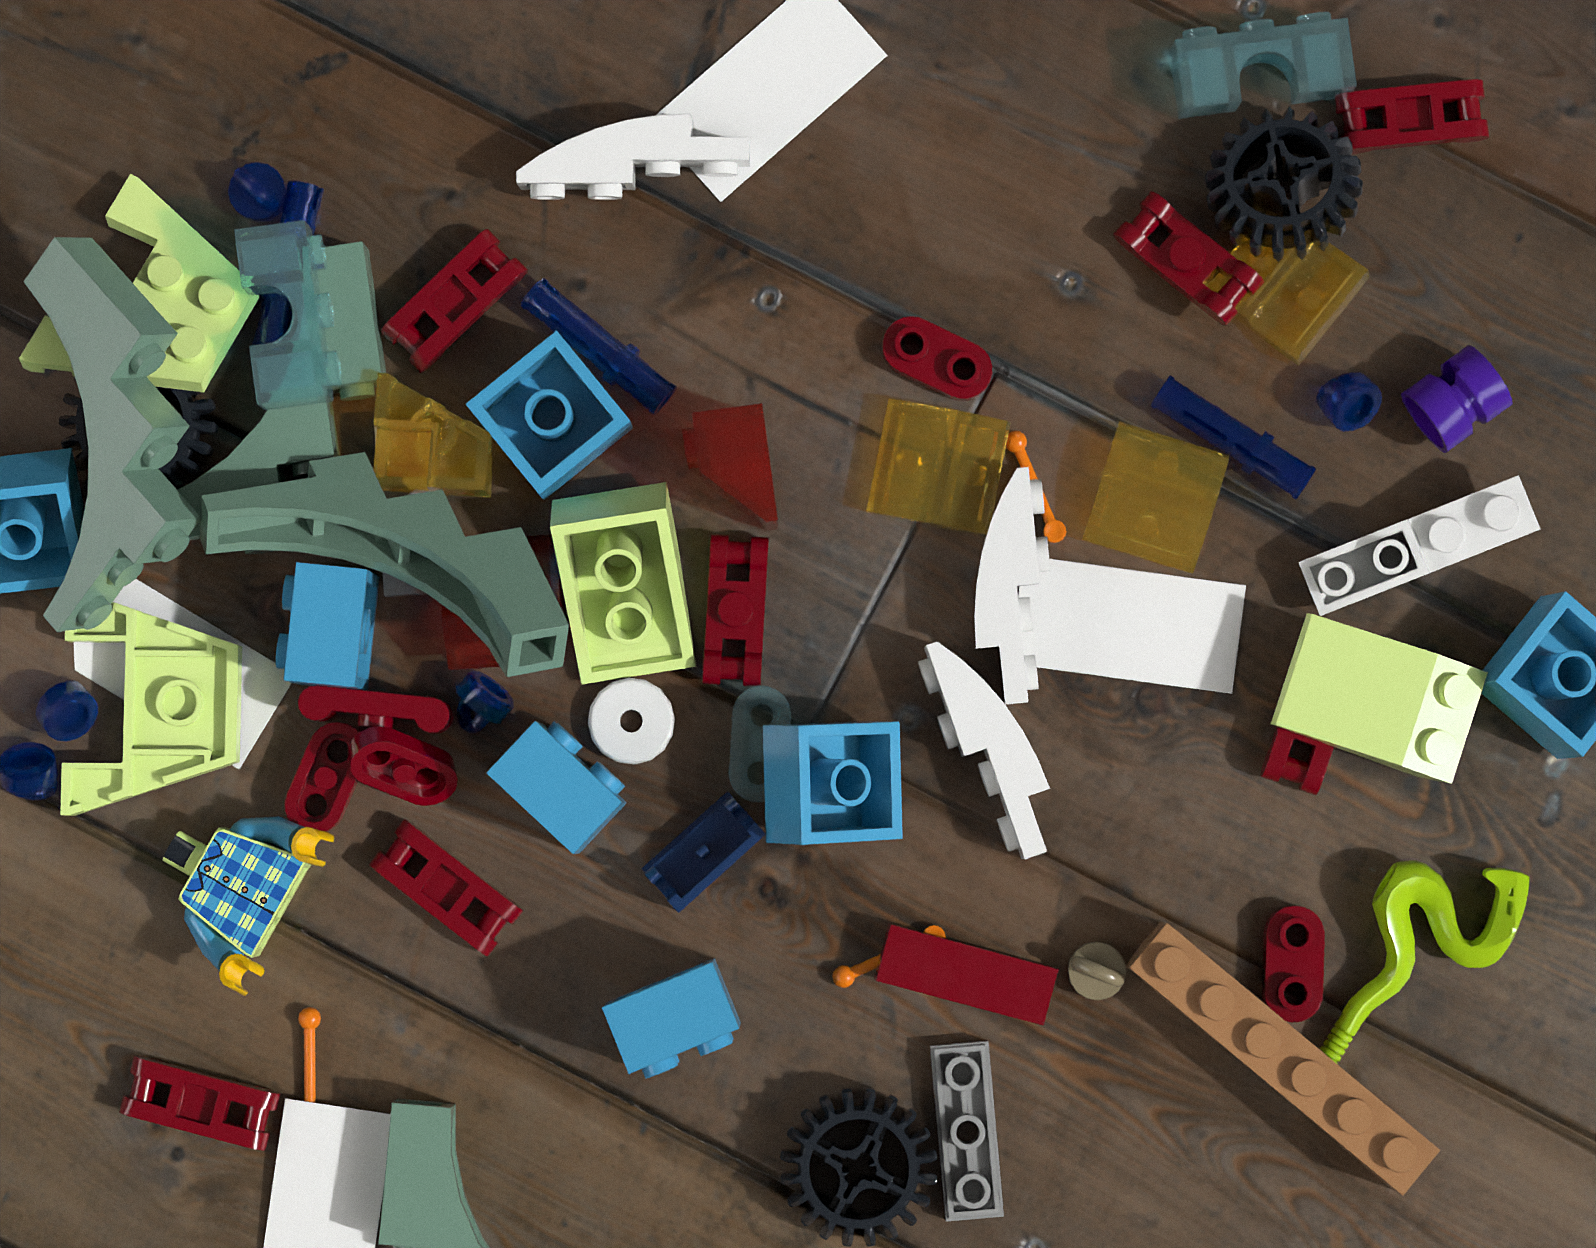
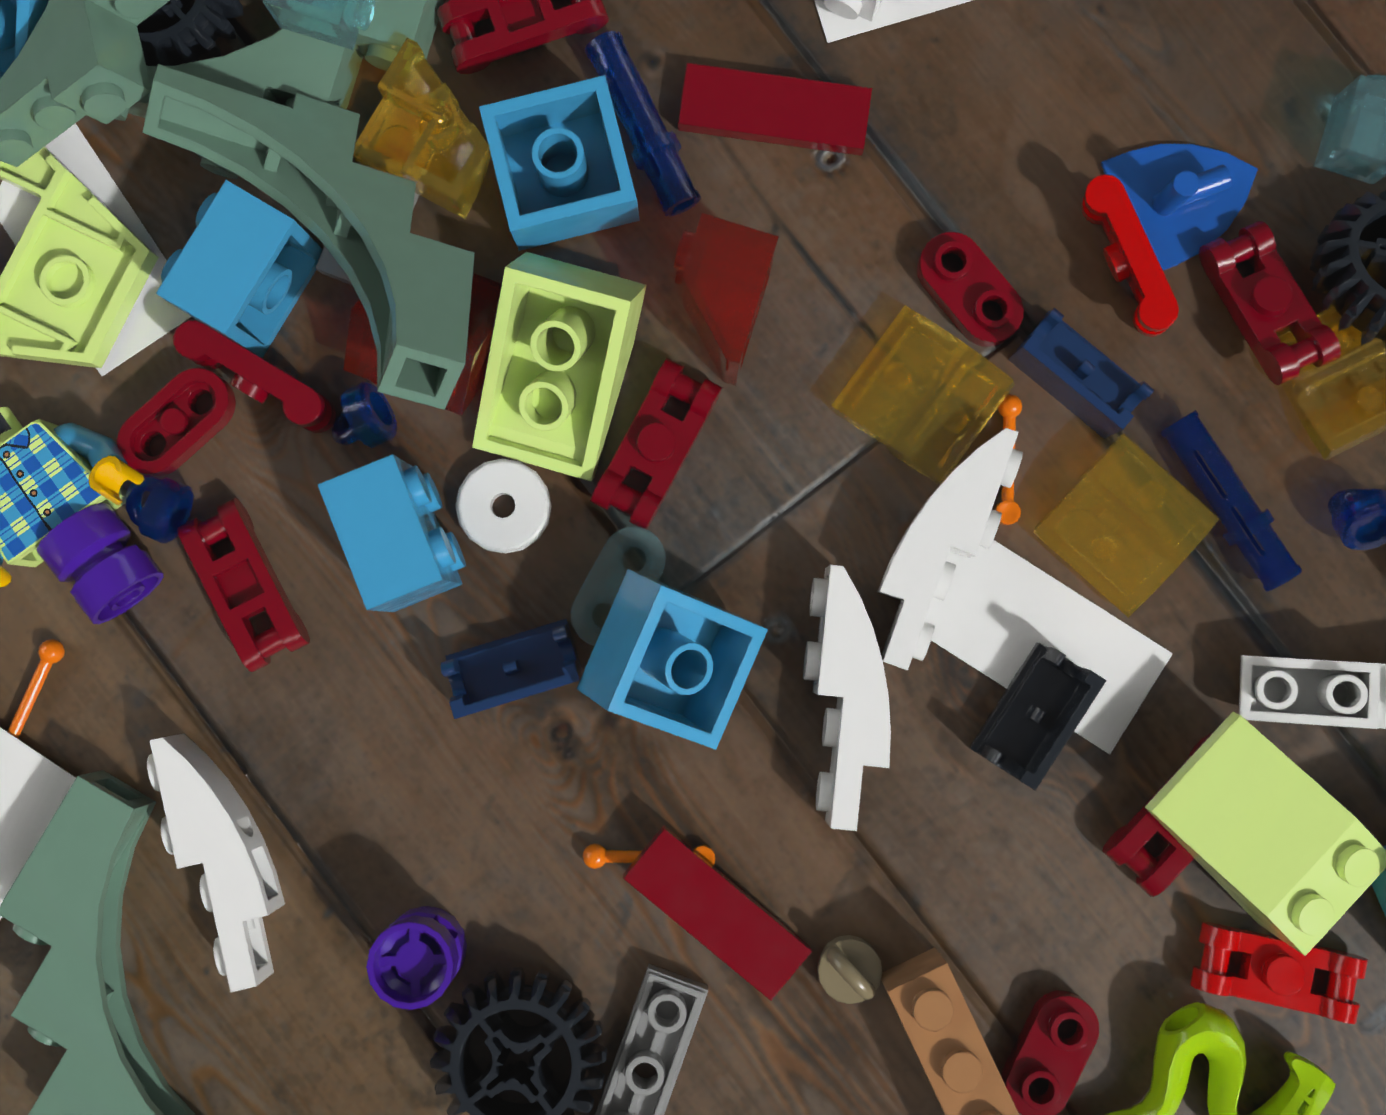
camera: 30 degrees right, 0 degrees up
(319, 921) = (95, 555): none -> dark purple wheel
(353, 855) = (164, 508): none -> clear blue tile
(394, 765) = (248, 440): dark red plate -> none
(520, 1098) = (214, 827): none -> white slope
(672, 1018) = (396, 824): dark azure brick -> none
(703, 281) = (774, 109): none -> dark red tile
(737, 1122) = (416, 957): none -> dark purple wheel
(1056, 272) = (1131, 254): none -> red plate
(1061, 388) = (1079, 375): none -> dark blue hinge
(1076, 200) = (1182, 195): none -> blue shield
(1152, 689) = (1037, 715): none -> black hinge
(1448, 808) = (1278, 973): none -> red plate

